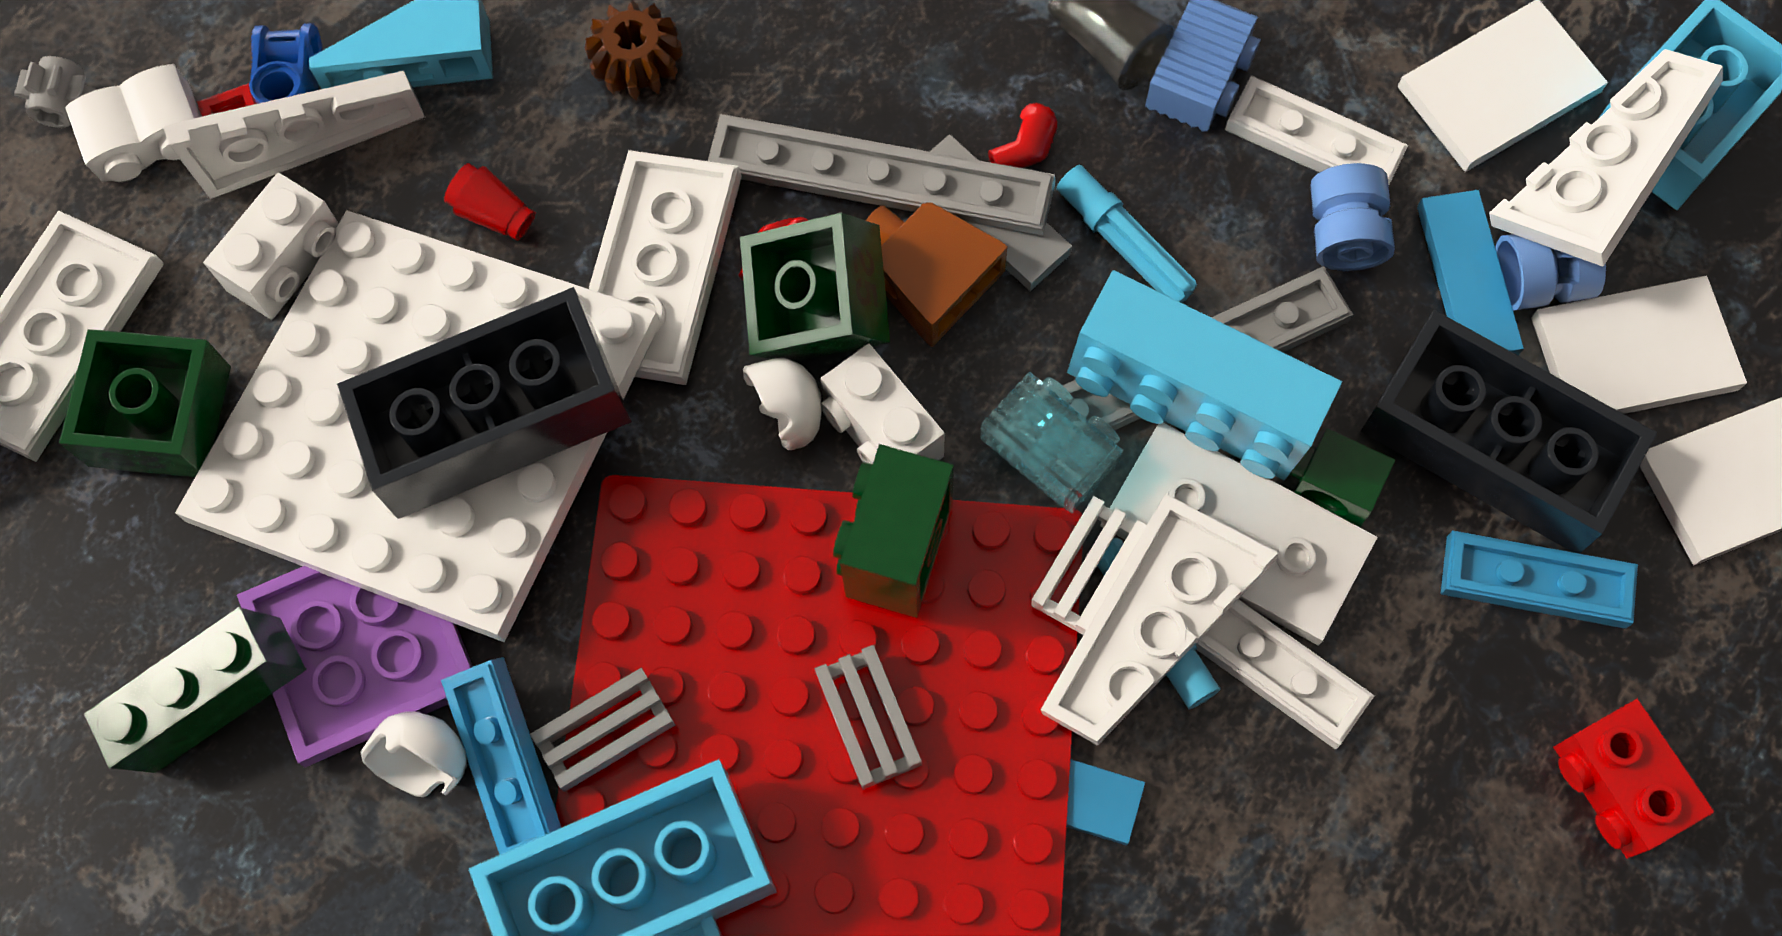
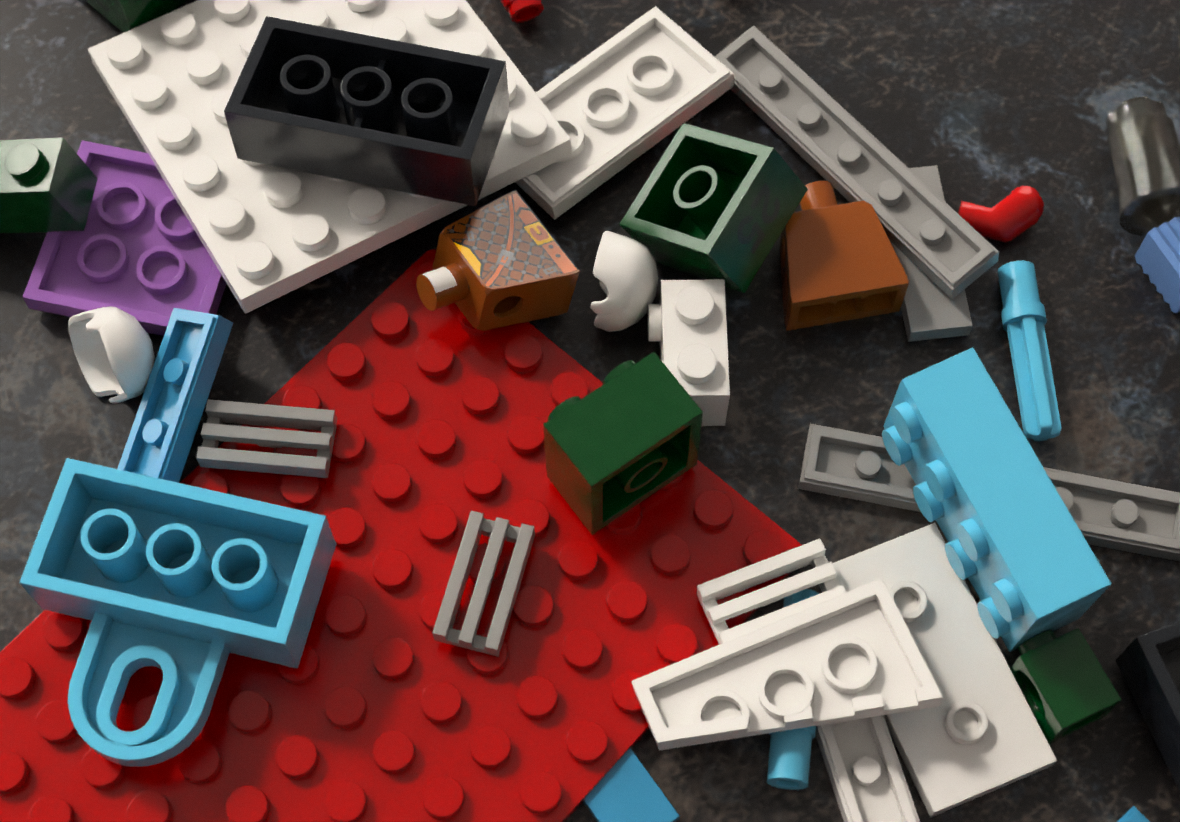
camera: 35 degrees right, 5 degrees down
(680, 456) = (499, 267): none -> dark orange torso
(1052, 441) = (821, 470): clear light blue brick -> none

